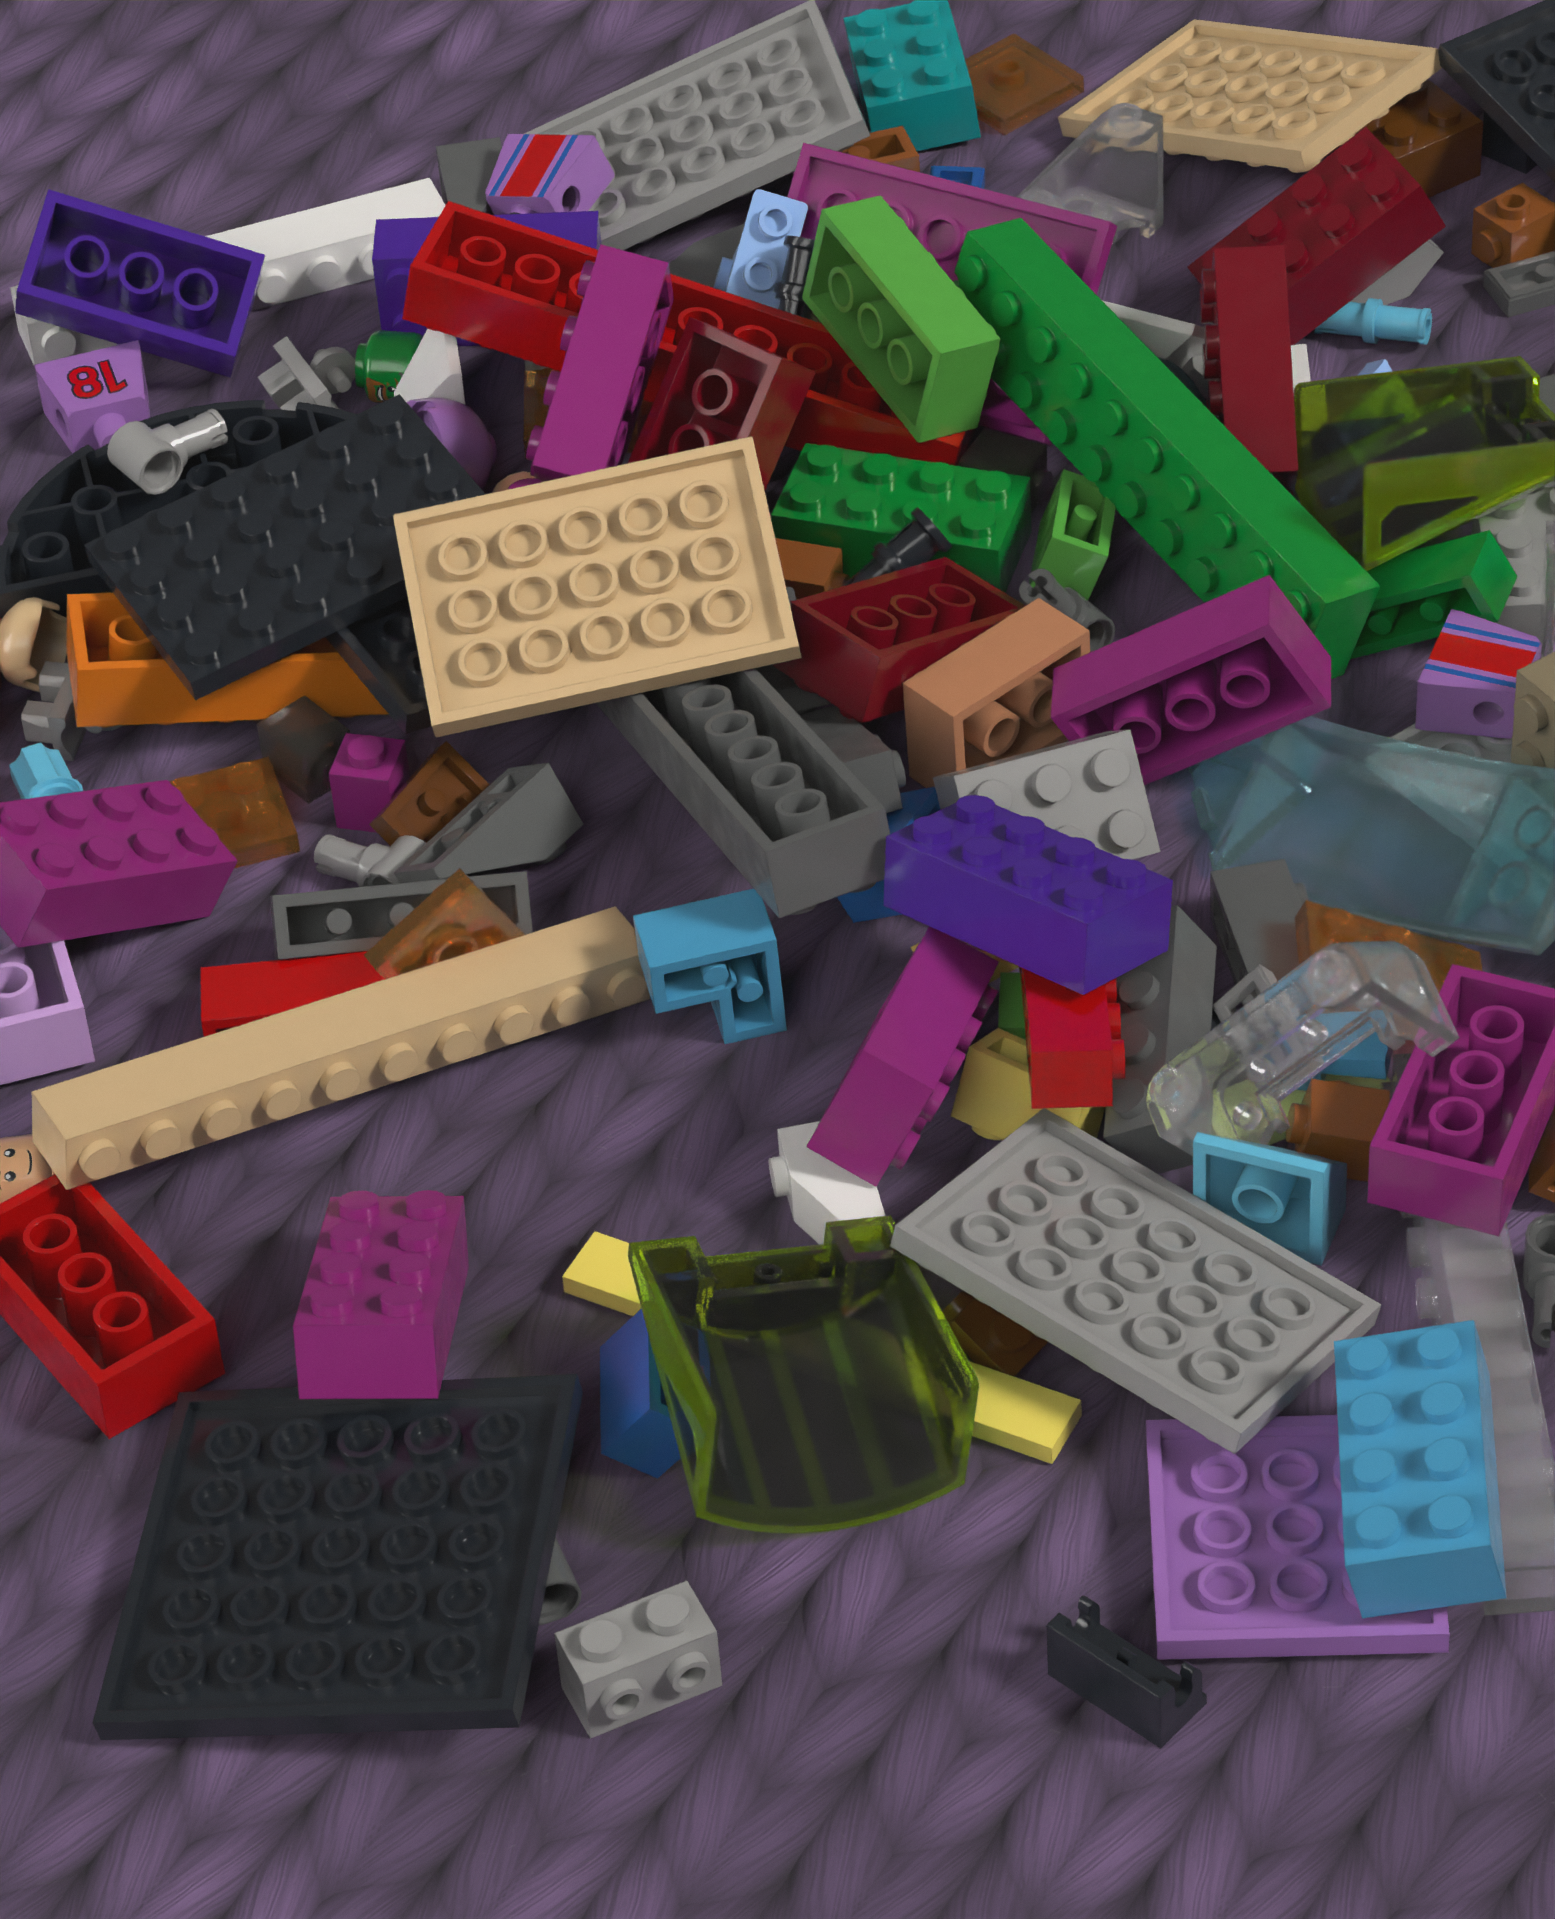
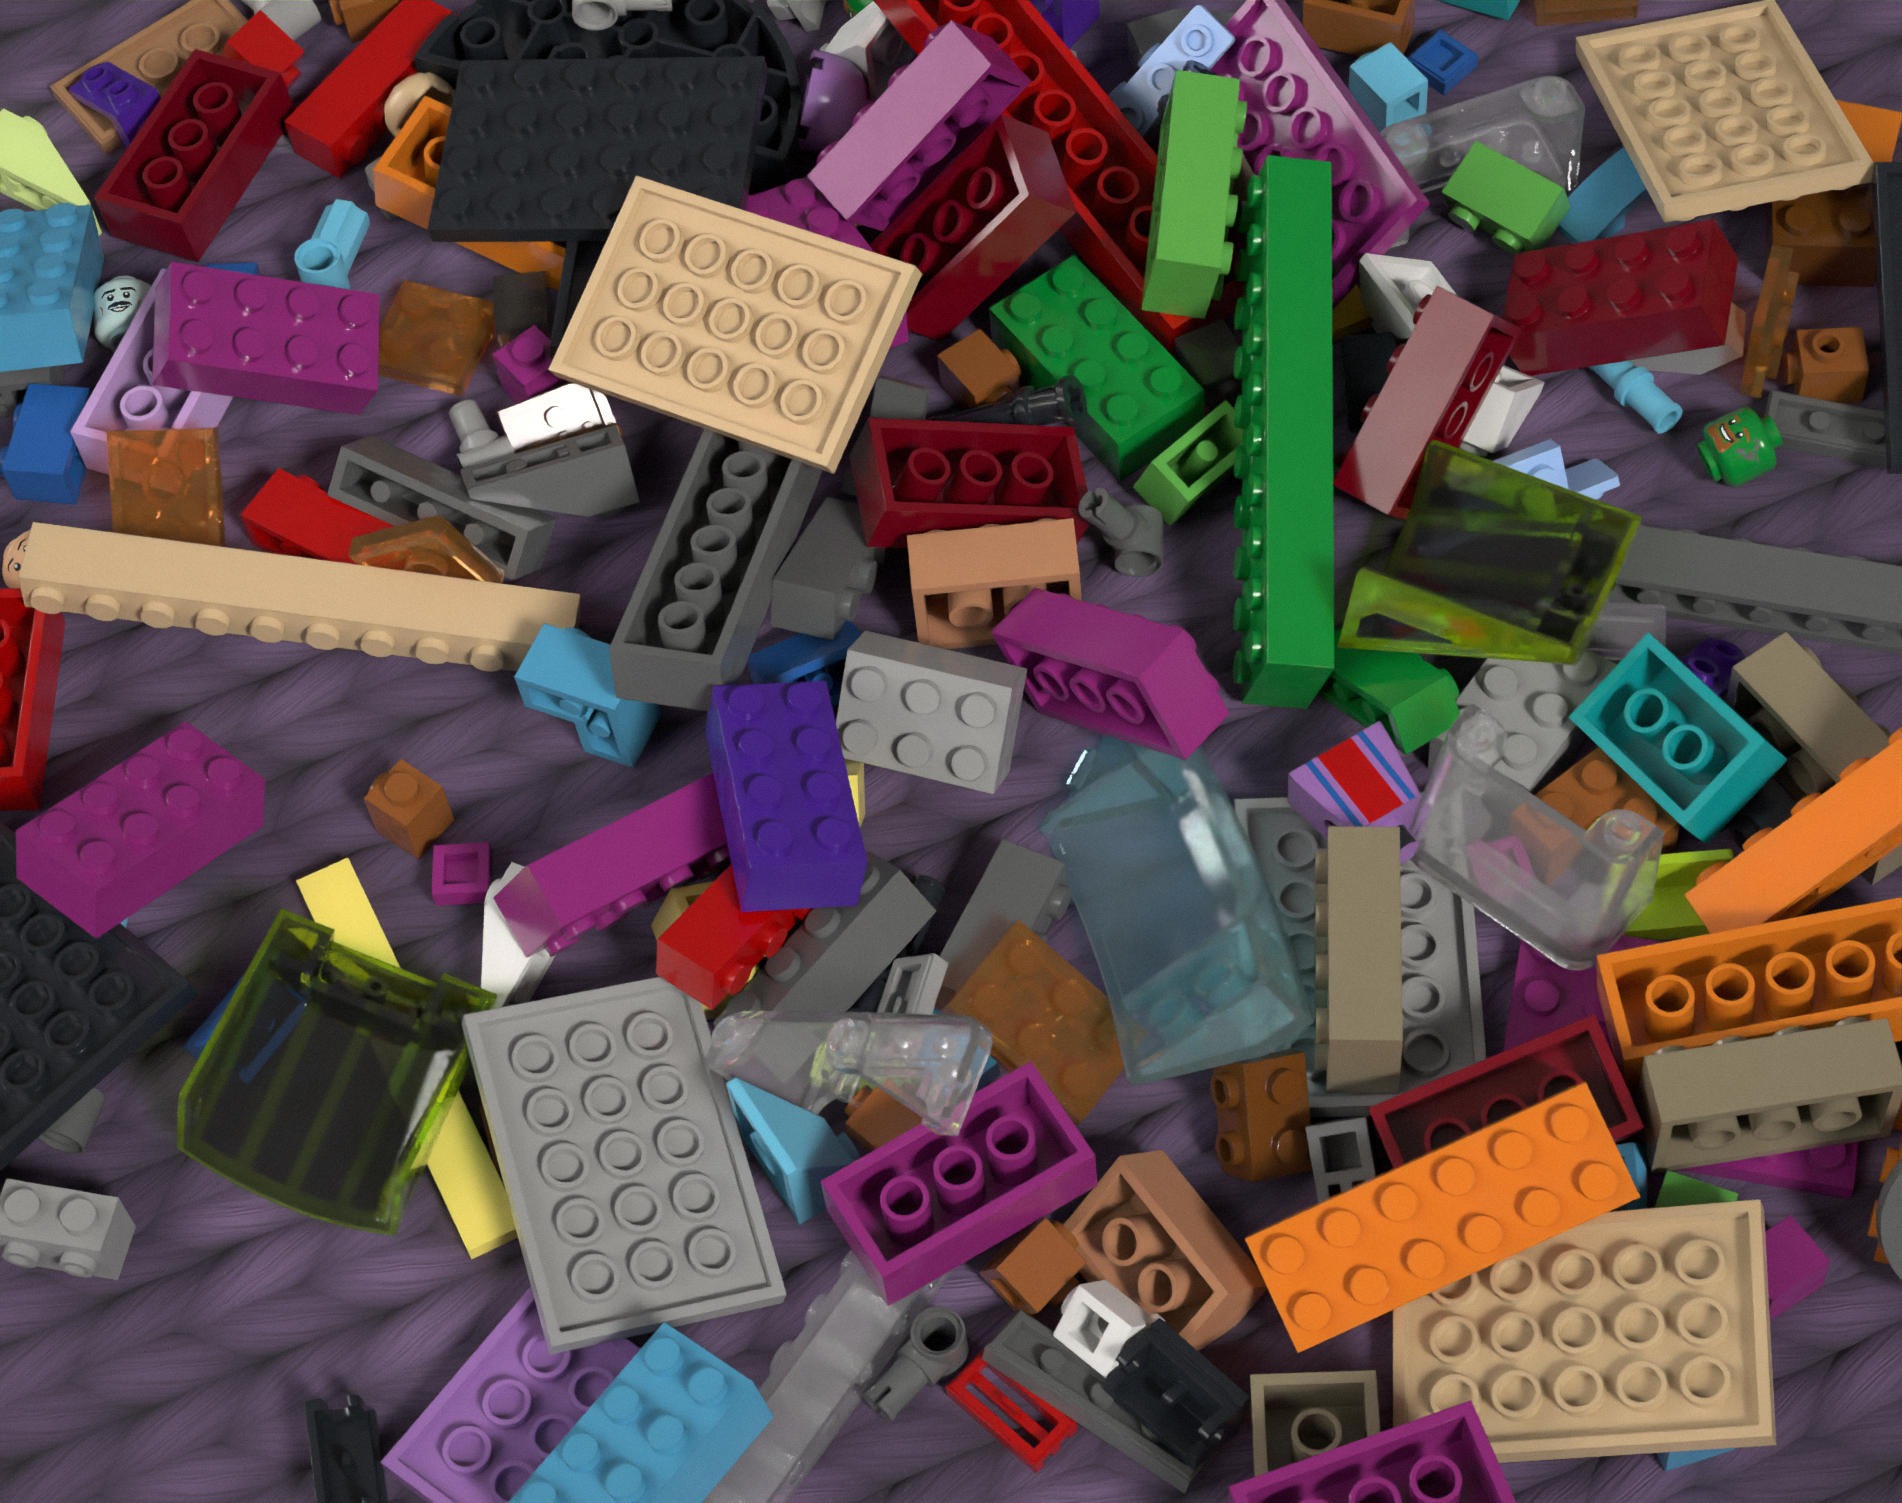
camera: 40 degrees right, 15 degrees up
(104, 1012) = (167, 484): none -> clear orange plate
(617, 1157) = (408, 808): none -> dark orange brick
(722, 1182) = (461, 873): none -> magenta plate
(1146, 244) = (1504, 200): none -> bright green brick
(1205, 207) = (1603, 200): none -> dark azure slope
(1458, 207) = (1770, 322): none -> clear orange plate
(1506, 314) = (1739, 446): none -> green head

